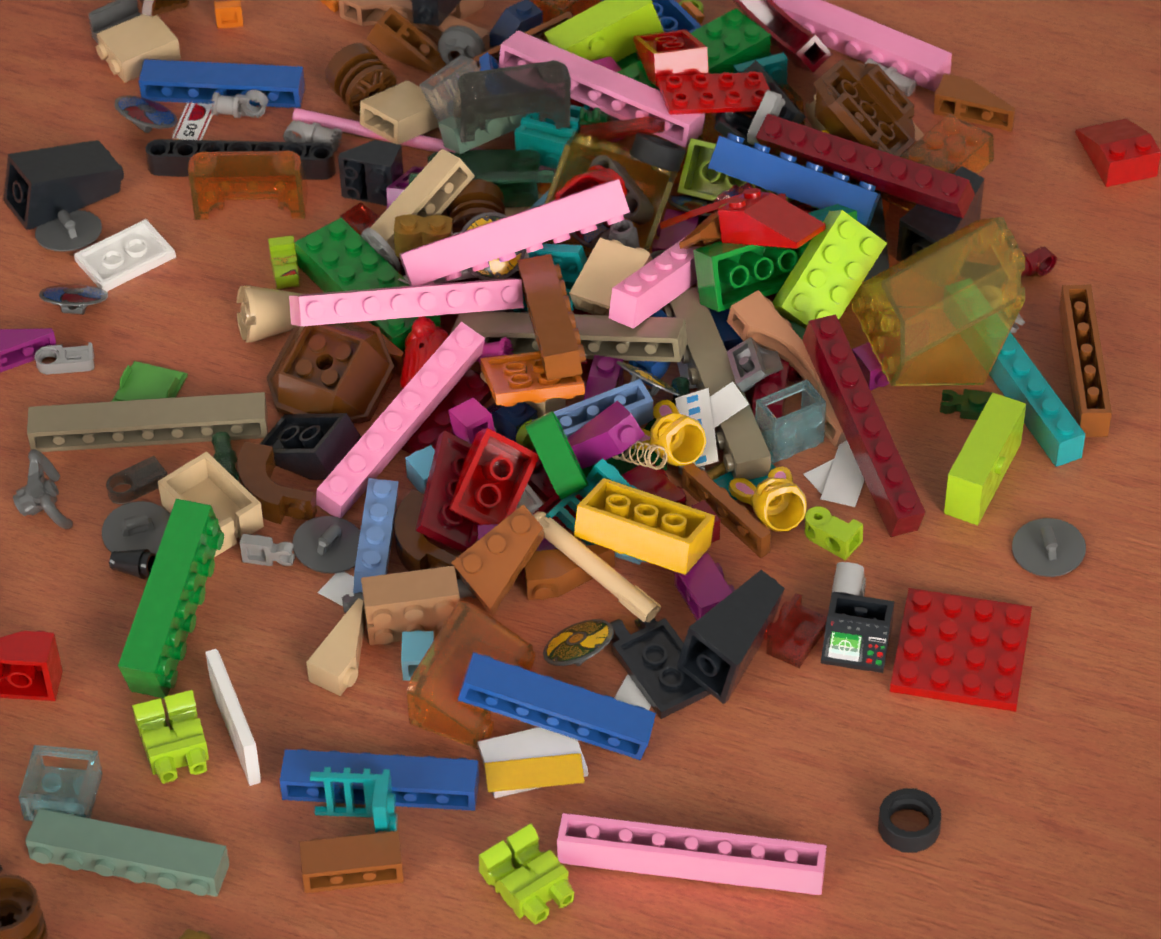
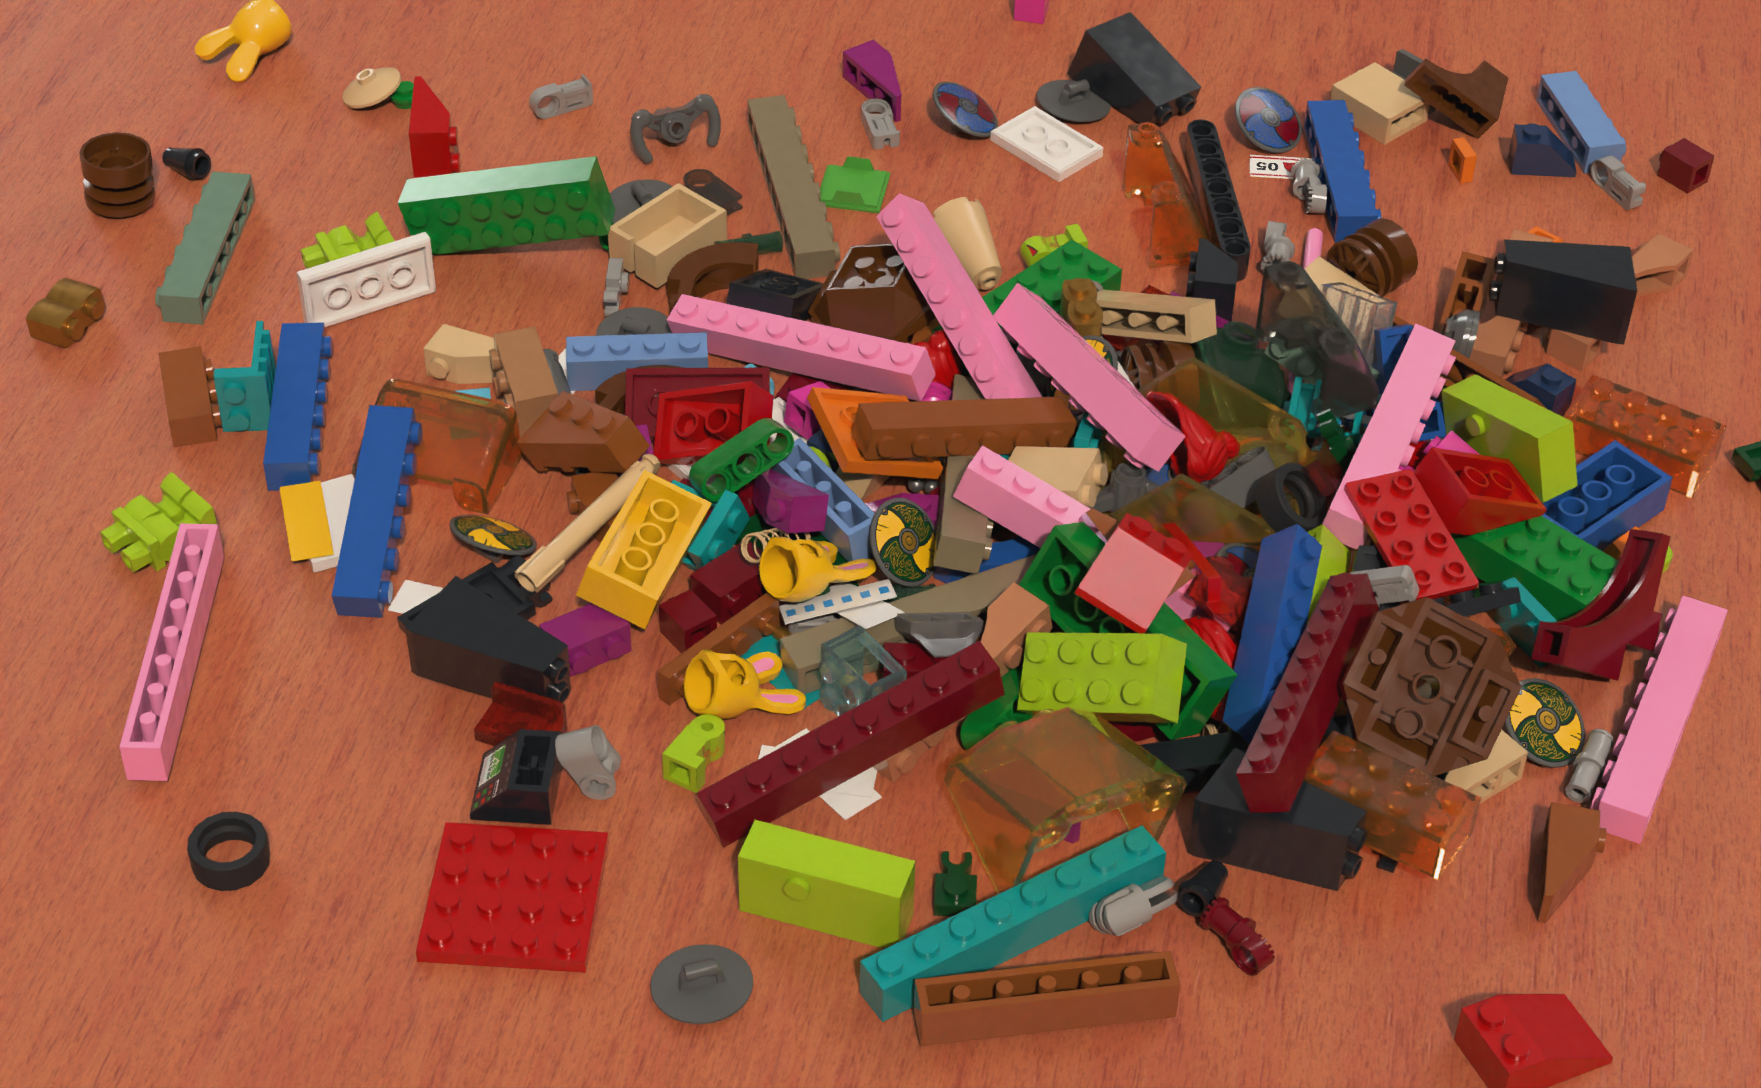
camera: 80 degrees right, 5 degrees down
(60, 788) = (283, 187): clear light blue piece -> none

